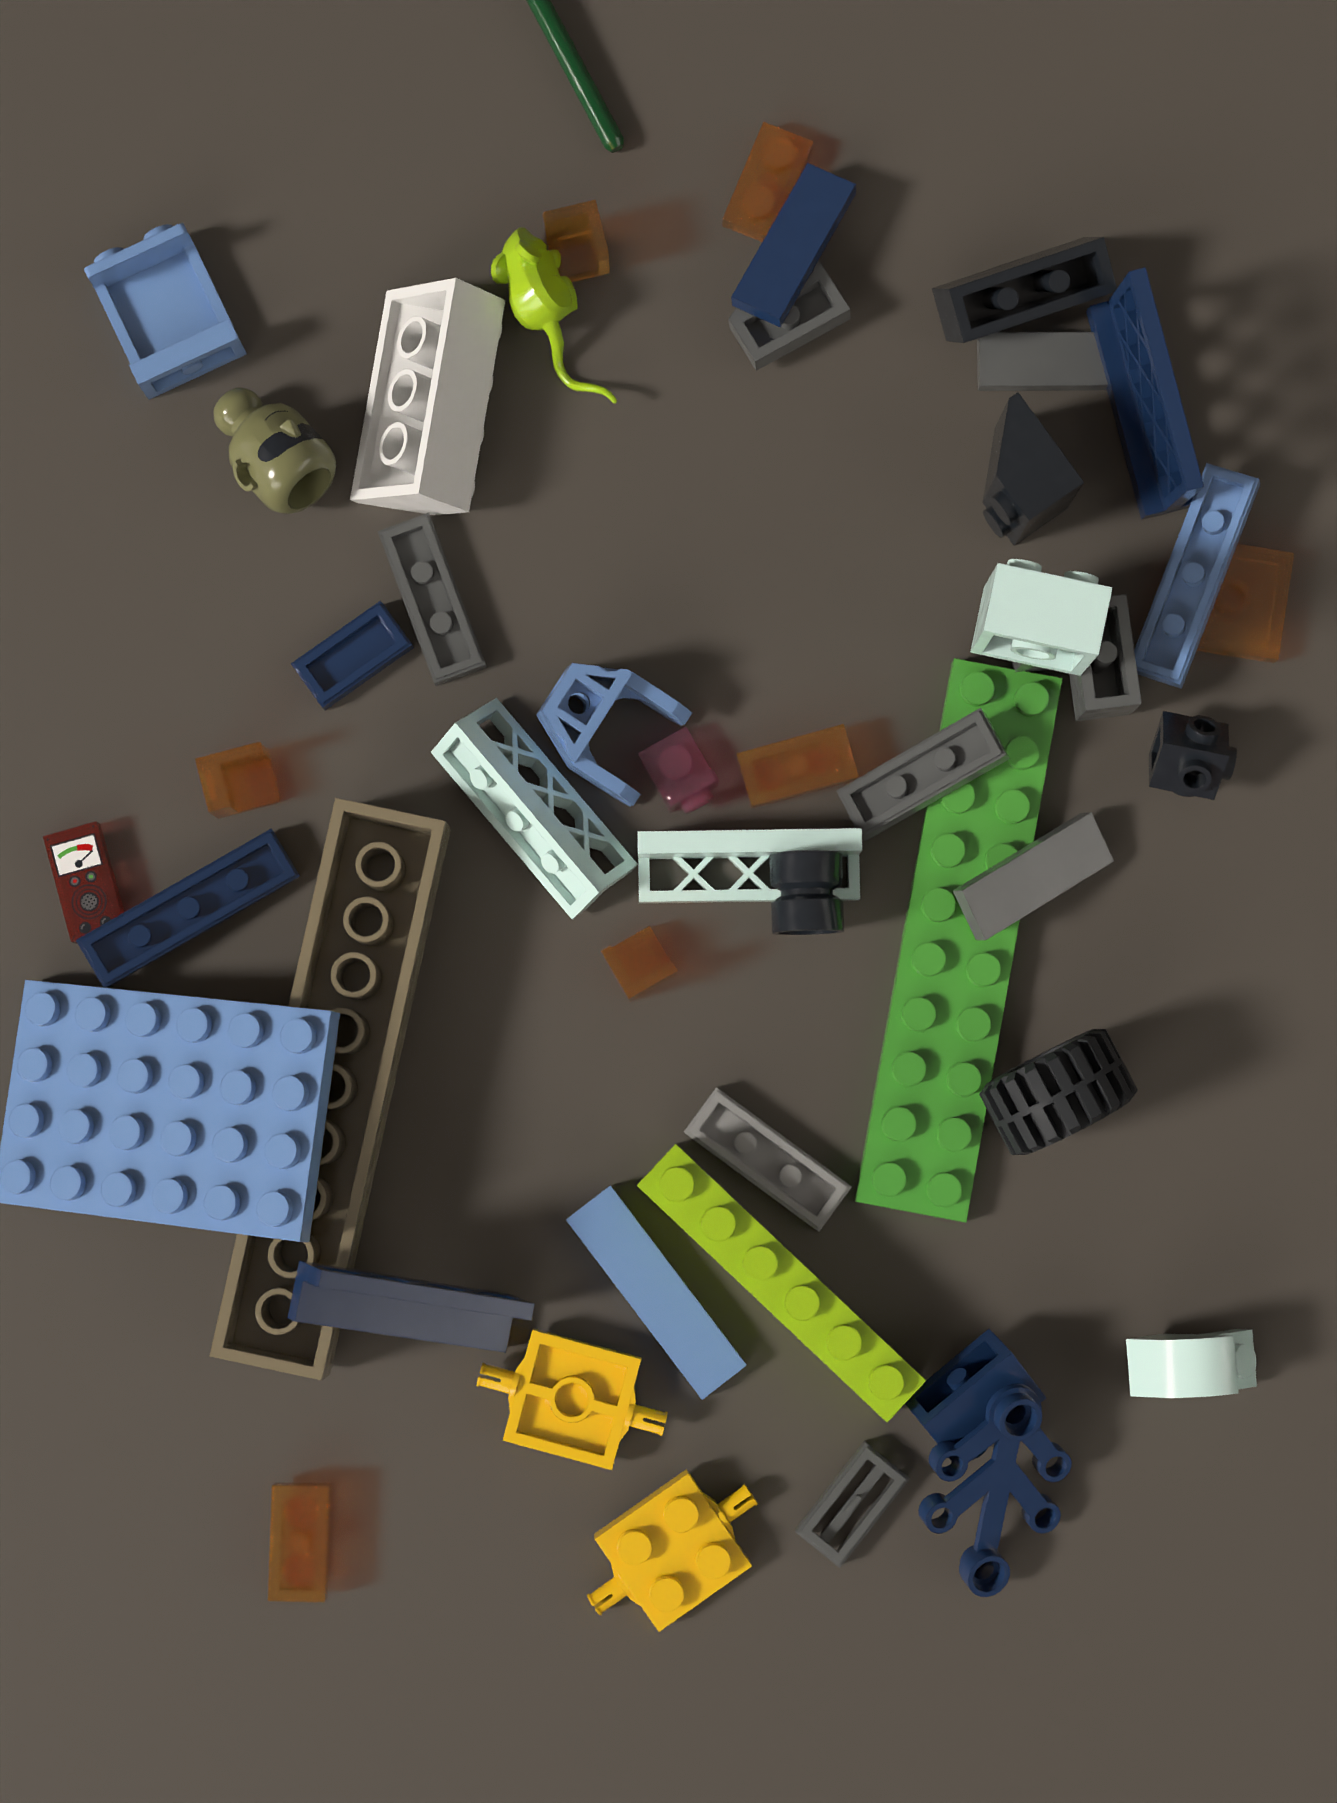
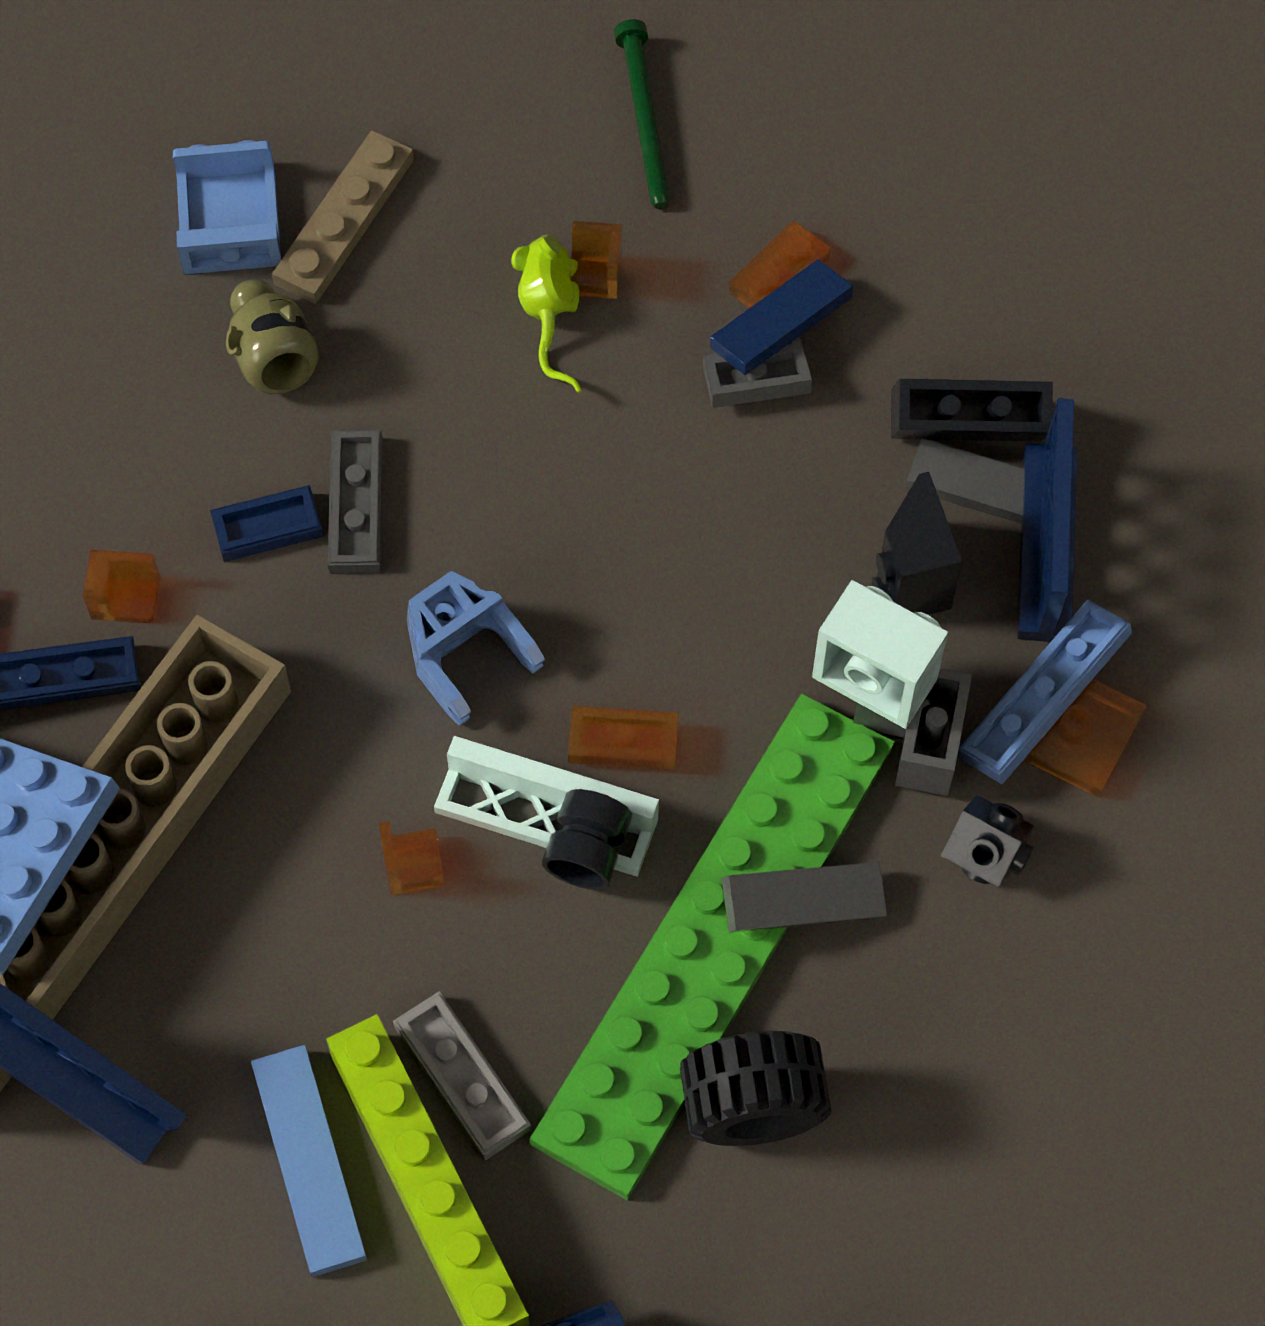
camera: 20 degrees right, 20 degrees down
(289, 275) = (343, 217): none -> dark tan plate
(428, 398) = (420, 340): white slope -> none
(526, 811) = (361, 691): light aqua fence -> none
(572, 1399) = (187, 1228): yellow plate -> none
(680, 772) = (515, 710): clear pink bracket -> none
(923, 774) = (734, 777): dark grey tile -> none

